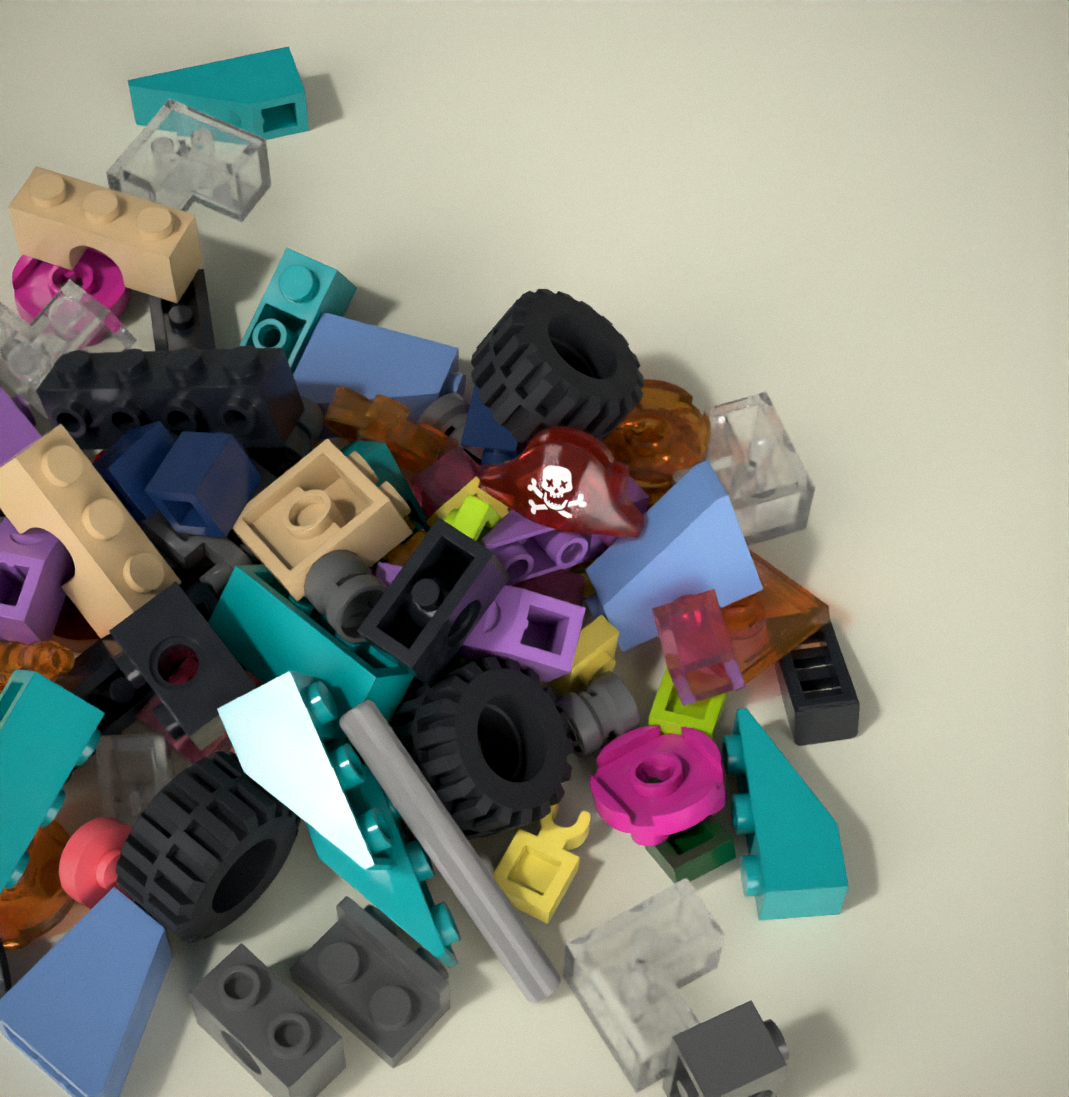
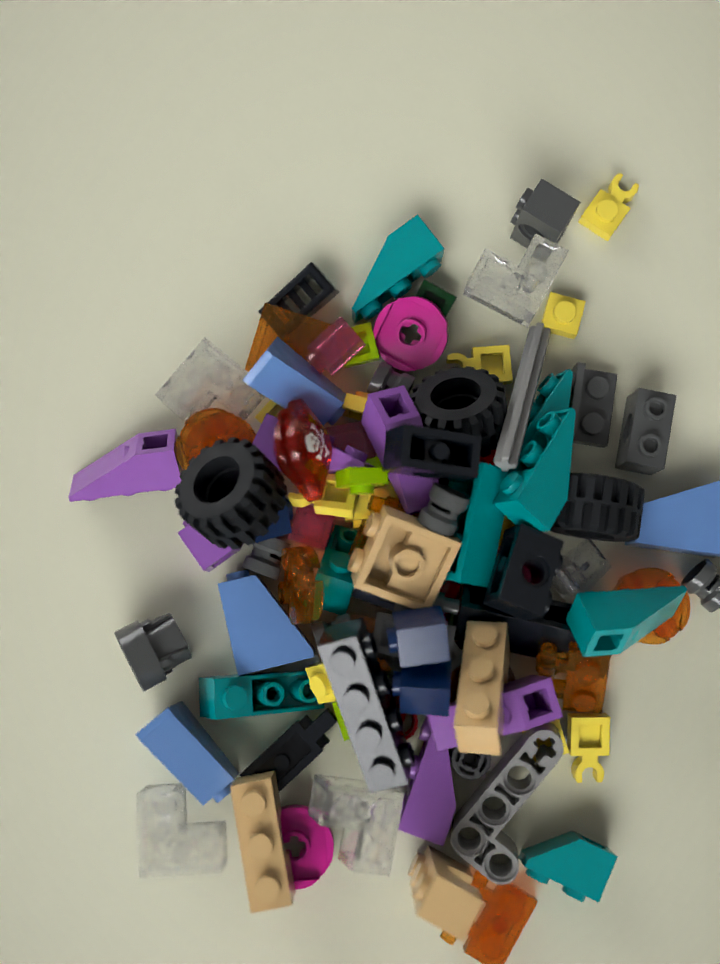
camera: 120 degrees left, 25 degrees up
(91, 860) = (622, 559): coral wheel -> none
(248, 91) = (94, 850): teal slope -> none
(253, 224) = (189, 753): none -> medium blue slope
(427, 246) = (153, 649): none -> dark grey piece
(548, 1043) = (563, 315): none -> light yellow plate
(689, 336) = (134, 467): none -> medium lavender slope

